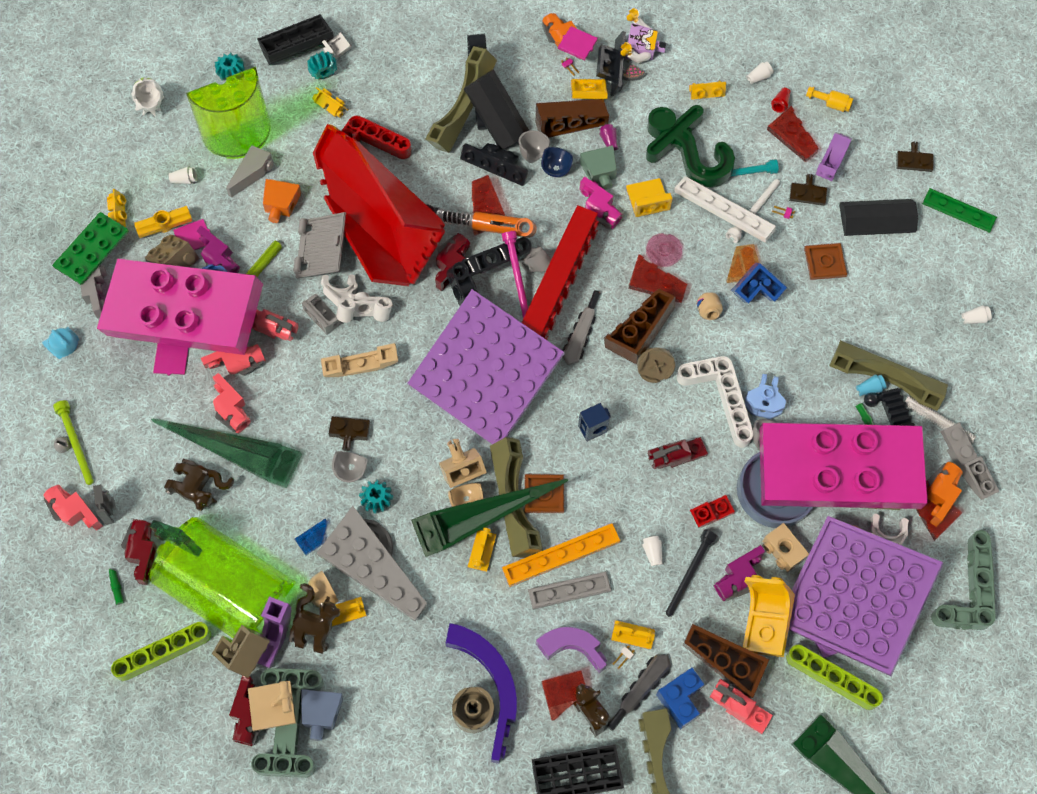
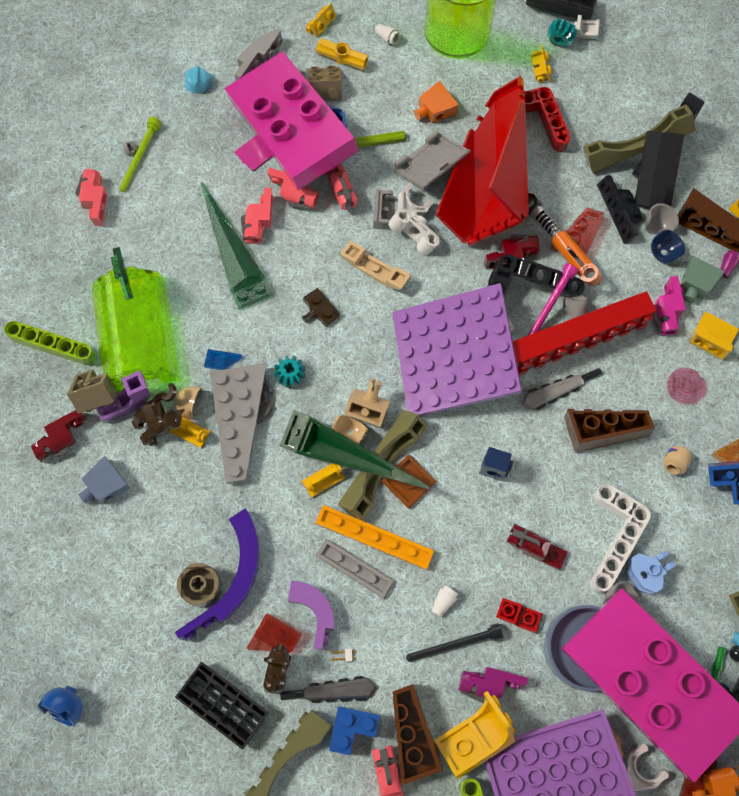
camera: 45 degrees right, 5 degrees up
(90, 248) = (275, 30): green bracket -> none
(104, 503) = (111, 210): dark grey plate -> none
(116, 587) = (68, 273): green piece -> none
(139, 549) = (102, 261): dark red plate -> none
(189, 234) = (354, 81): dark pink piece -> none
(193, 483) = (183, 249): dark brown animal -> none
(216, 251) = (355, 106): magenta plate -> none
(251, 169) = (439, 66): light grey slope -> none
(271, 706) = (73, 447): tan plate -> none
(287, 736) = (74, 470): sand green beam -> none
(341, 464) = (288, 327): light grey helmet -> none
(633, 634) = (366, 646): yellow hinge -> none
(649, 278) = (652, 396): clear red wing -> none
(656, 365) = (587, 465): dark tan tile -> none
(783, 537) = (550, 711): tan brick -> none

